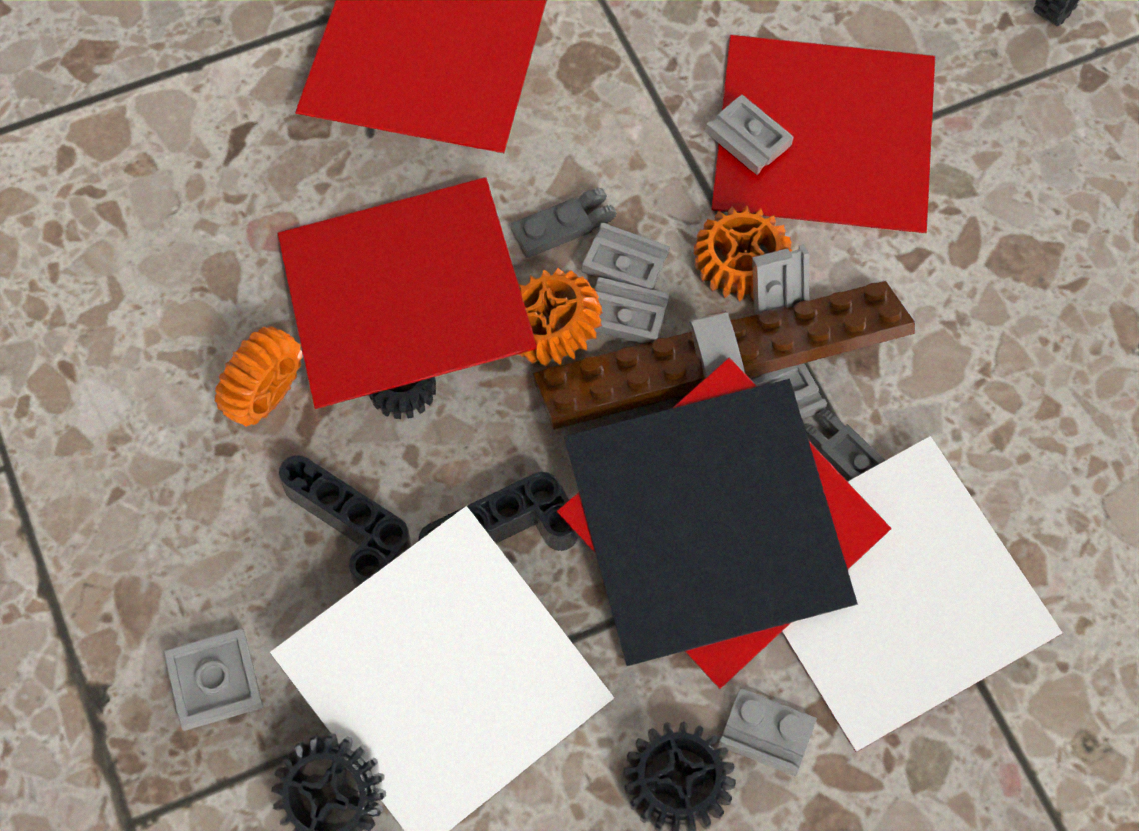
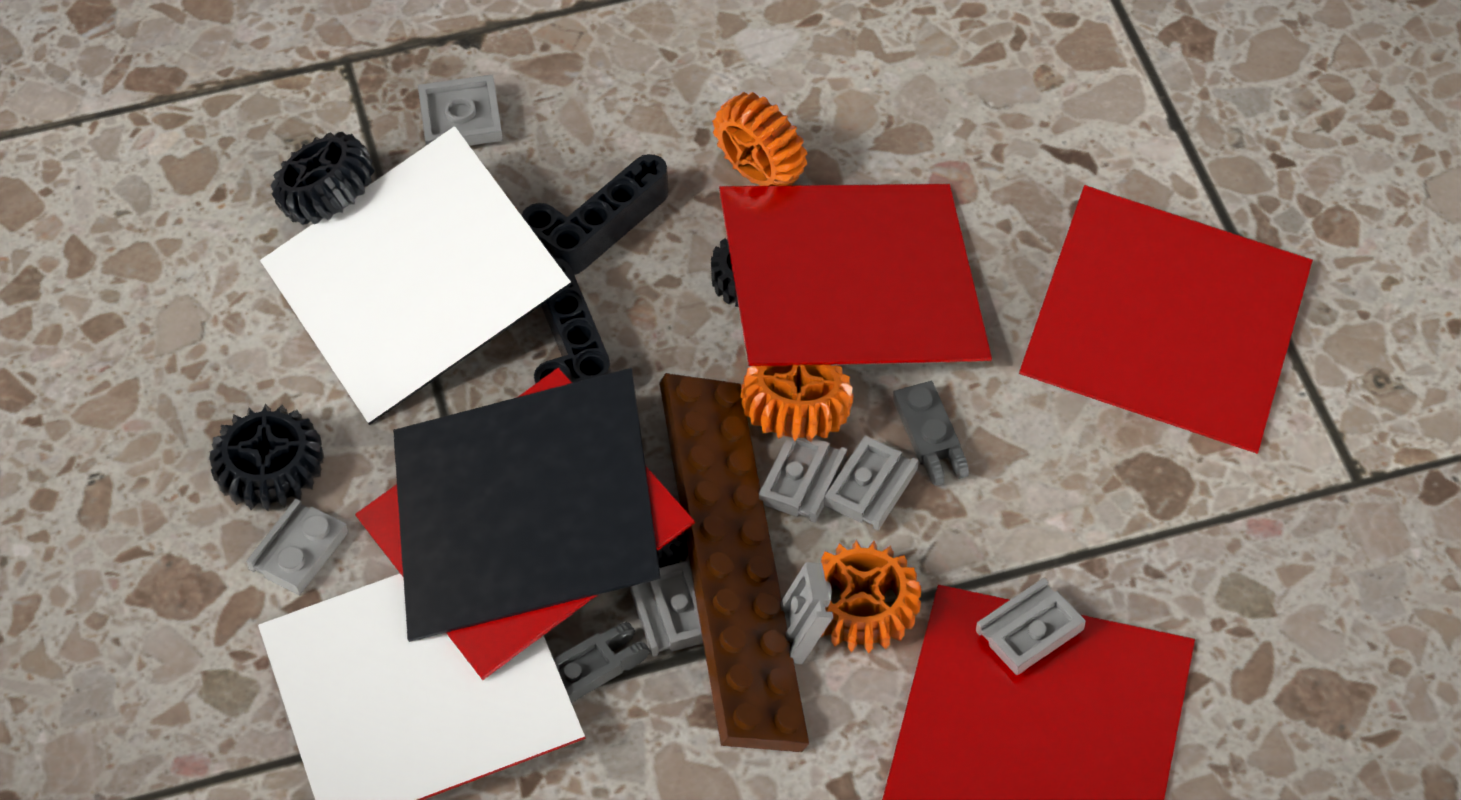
camera: 100 degrees right, 10 degrees down
(715, 341) = (717, 523): light grey slope -> none

